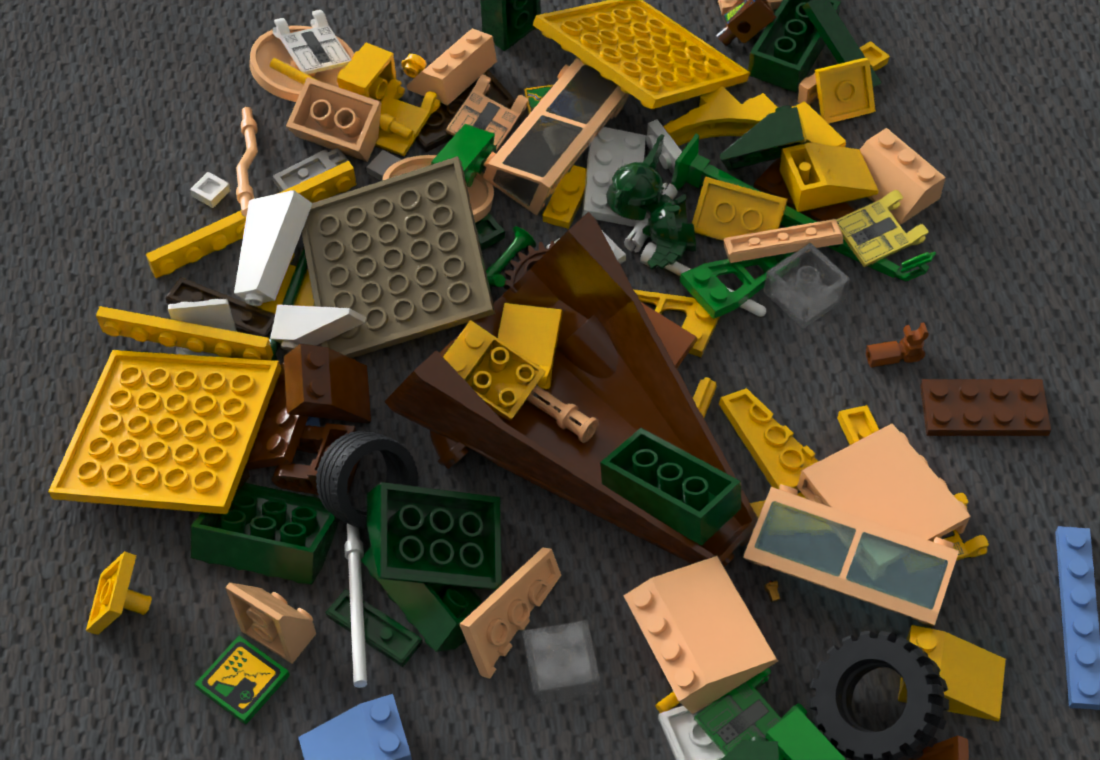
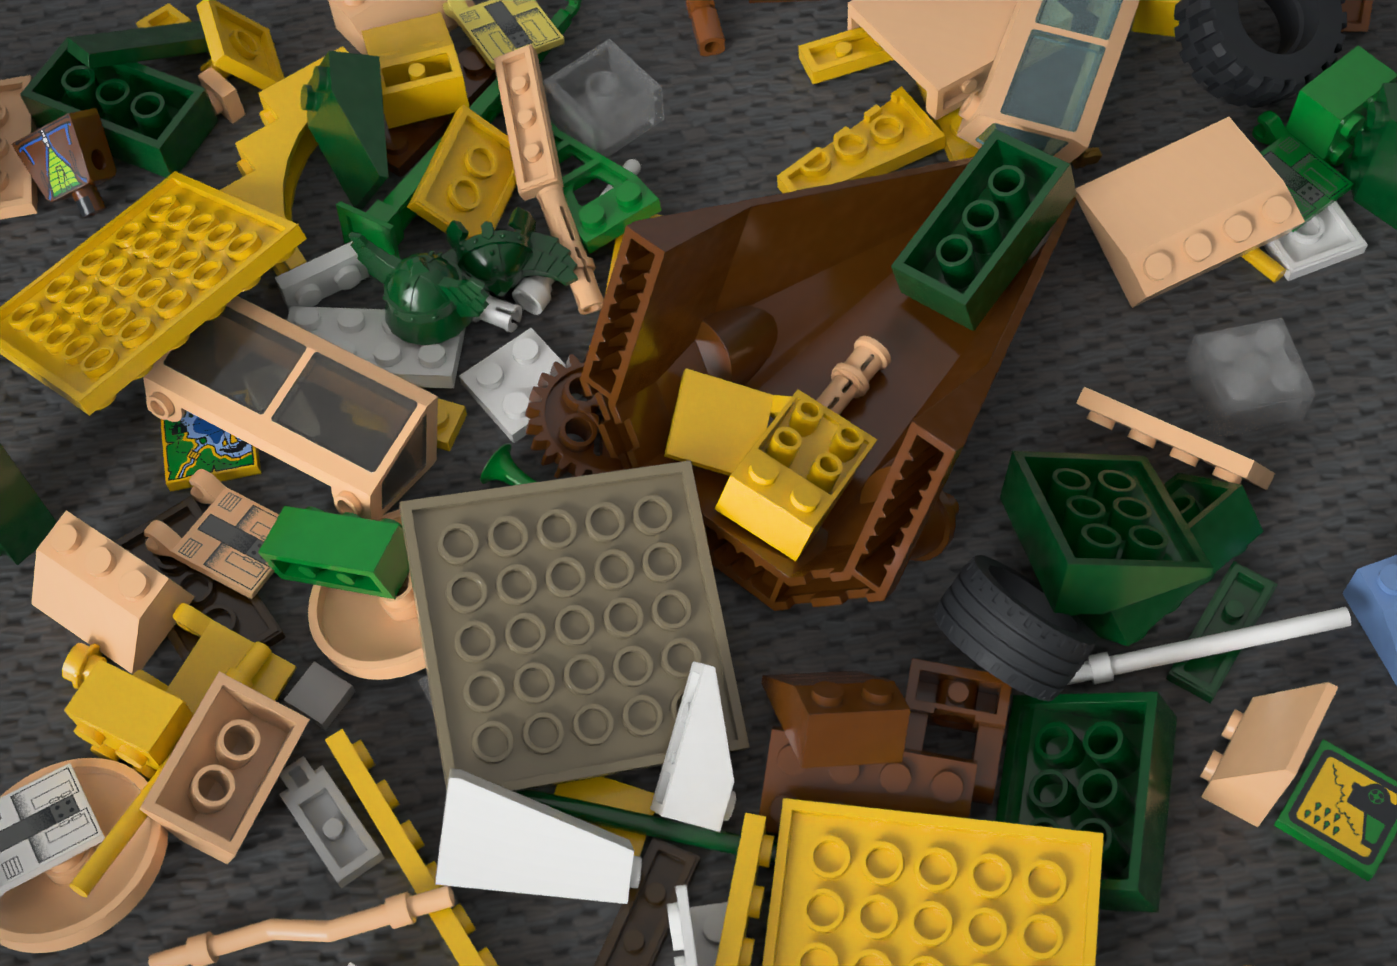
camera: 90 degrees left, 5 degrees up
(673, 272) = (554, 208): none -> light nougat pin

